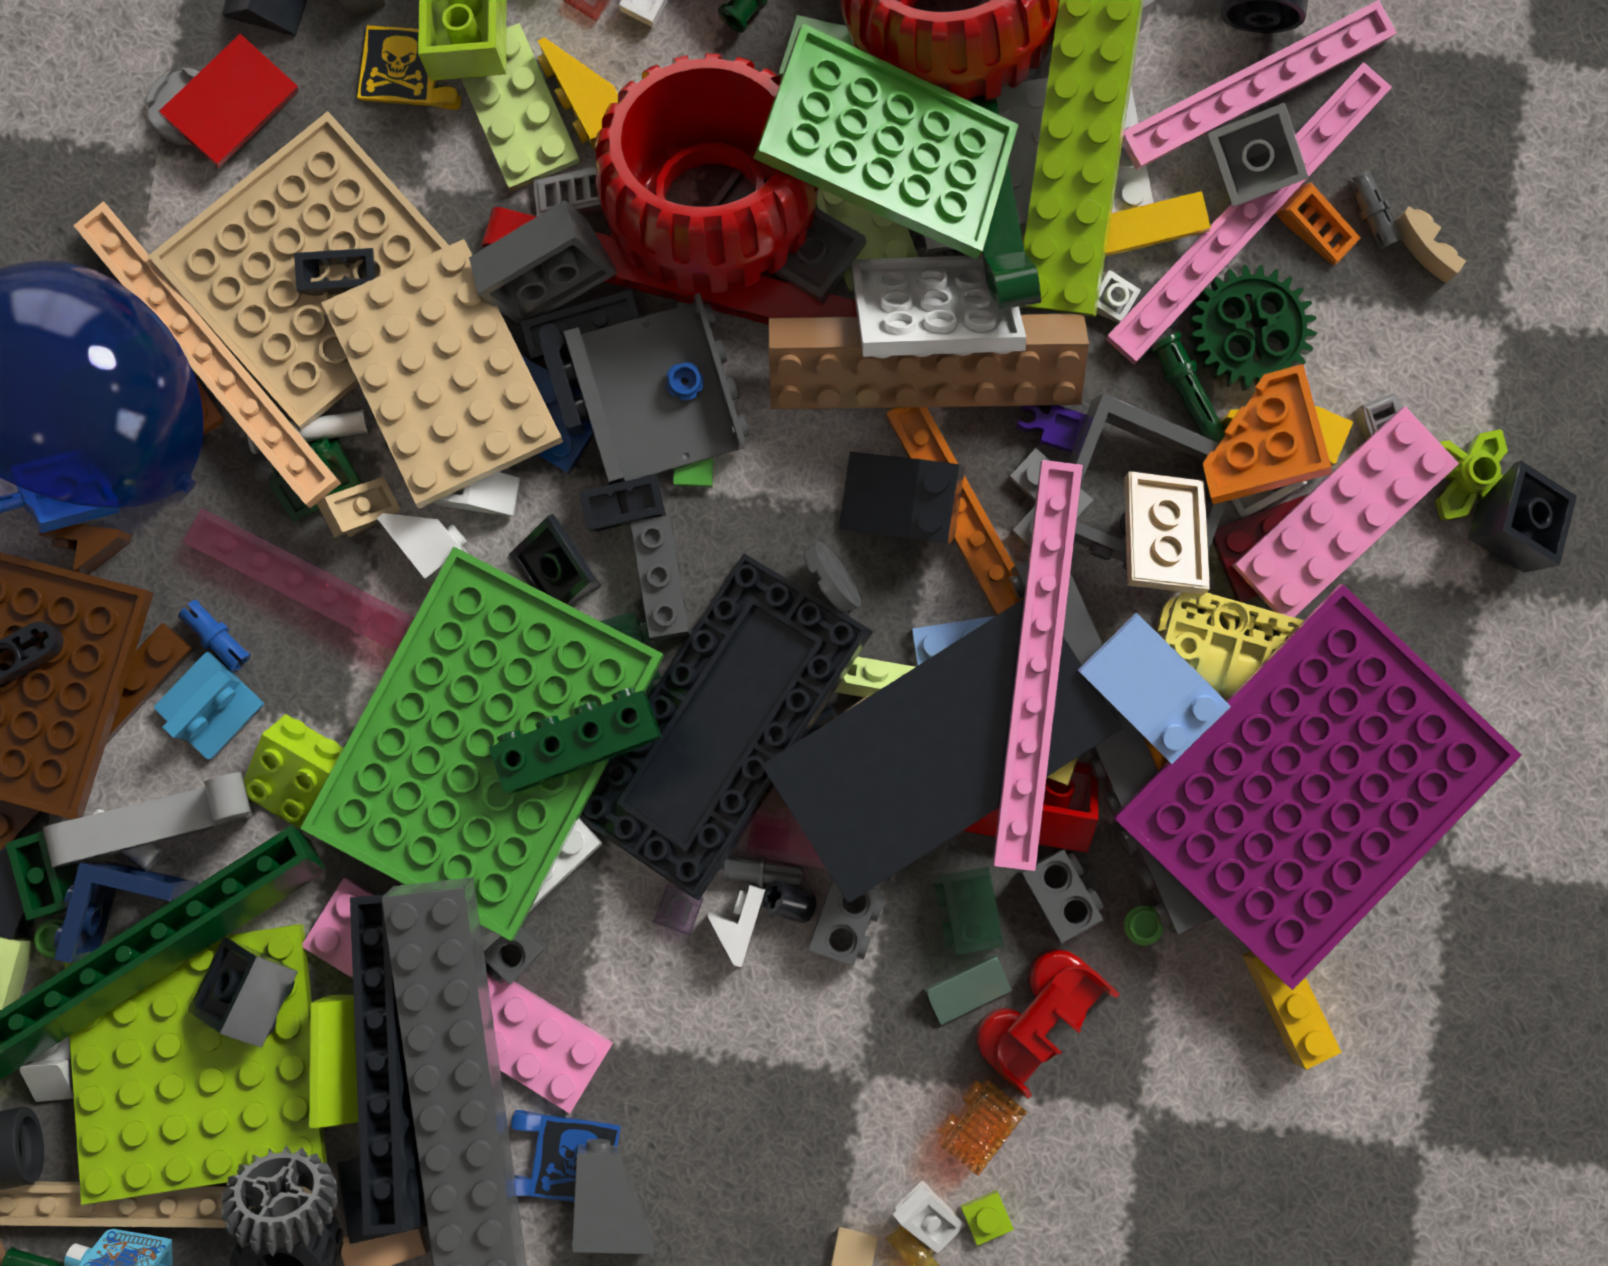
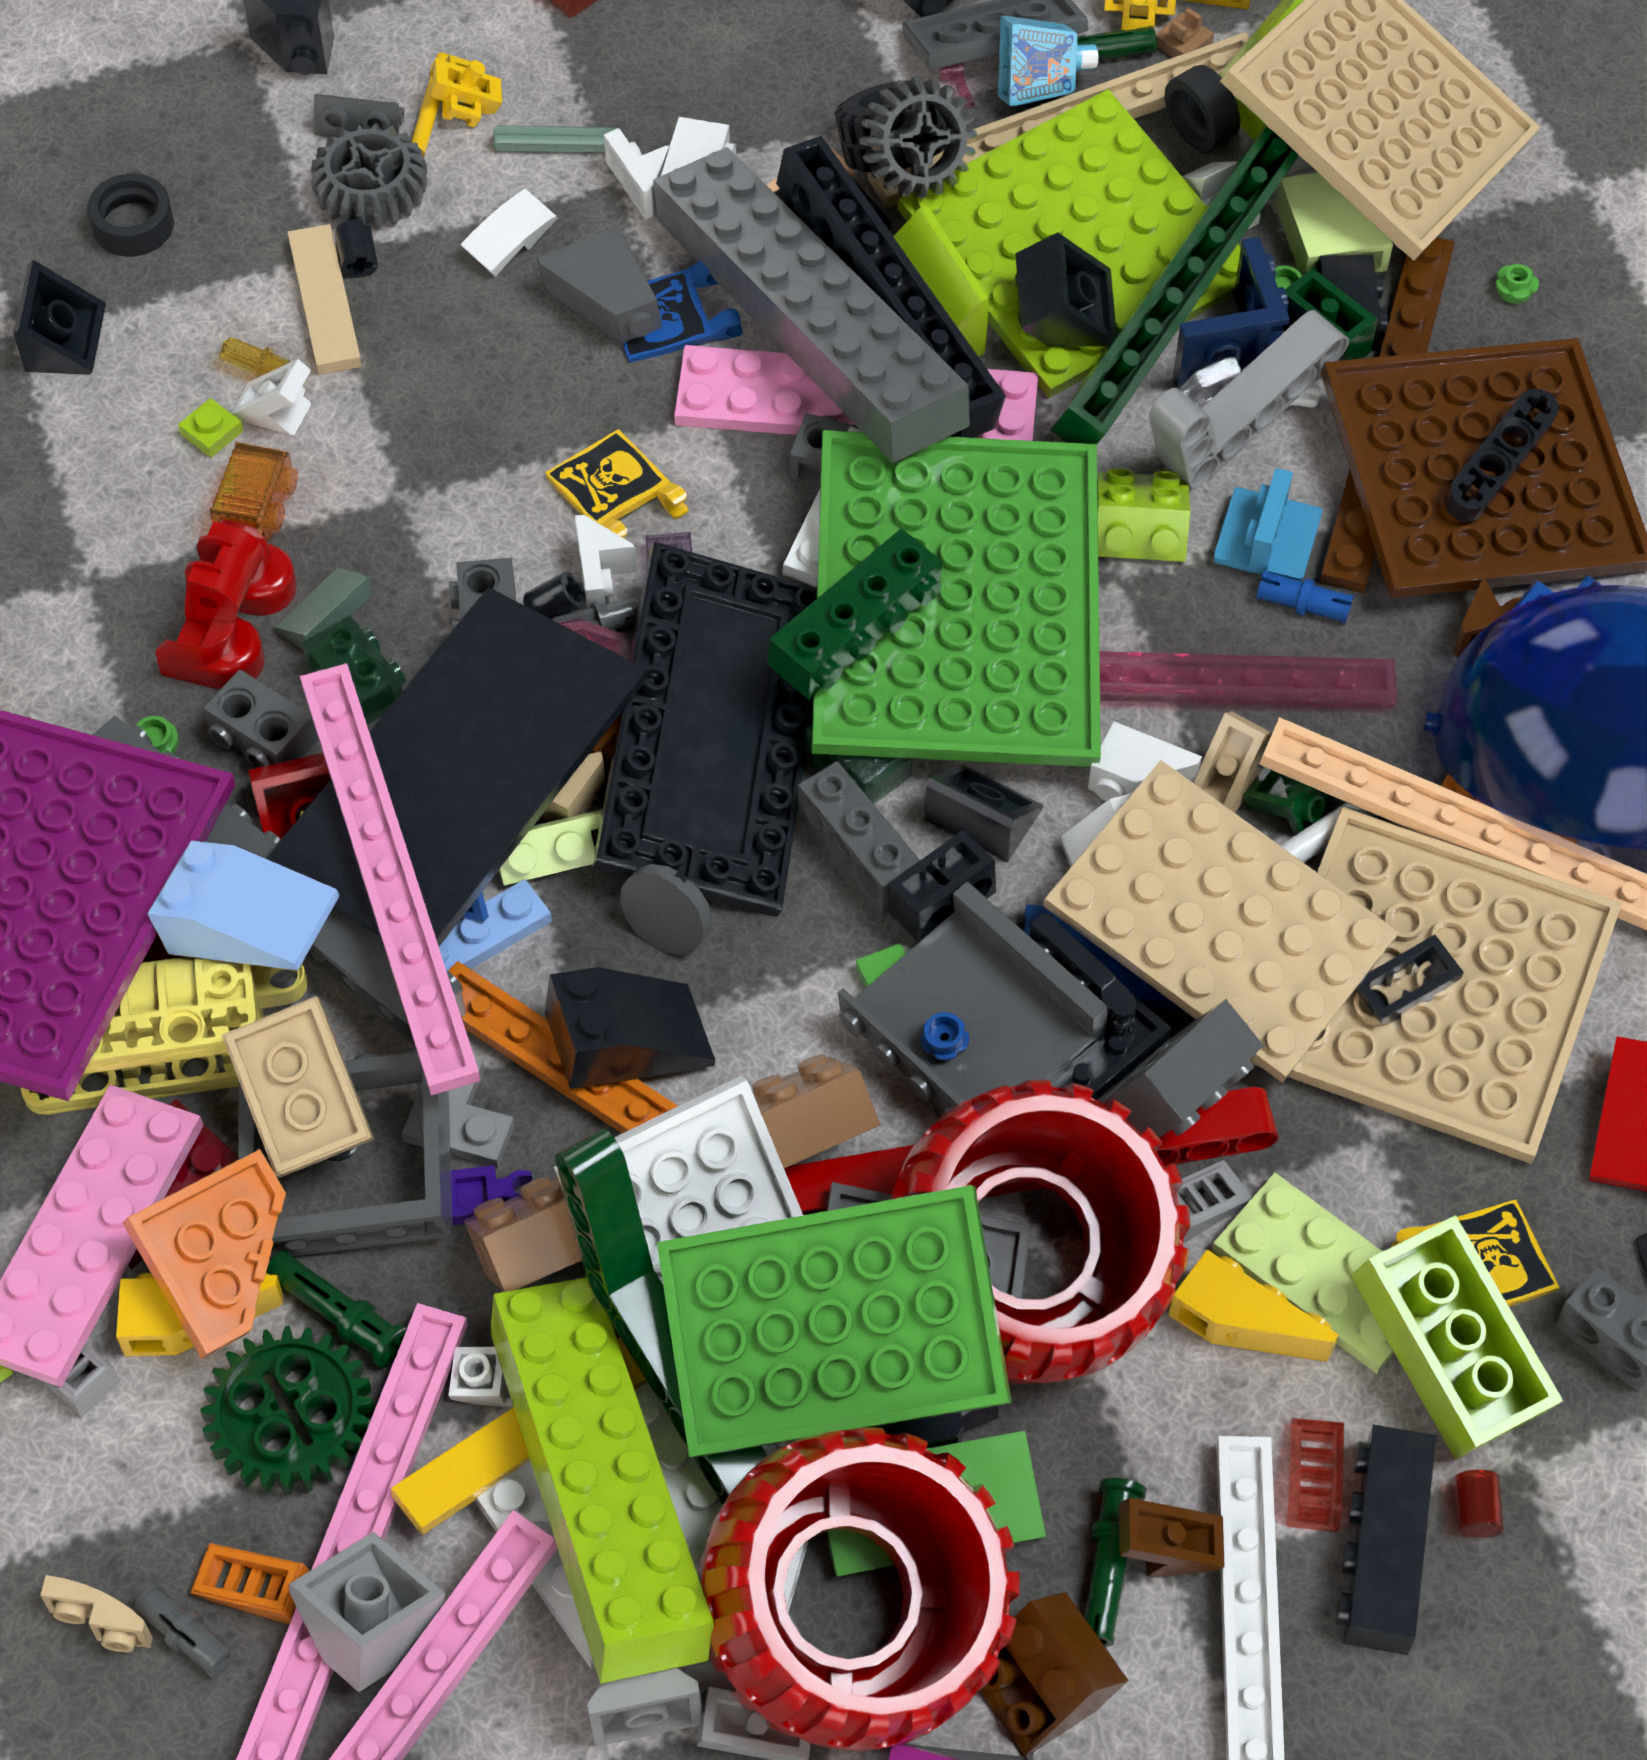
camera: 155 degrees right, 25 degrees down
(179, 853) = (1210, 380): none -> clear tile
(691, 1005) = (613, 481): none -> flag

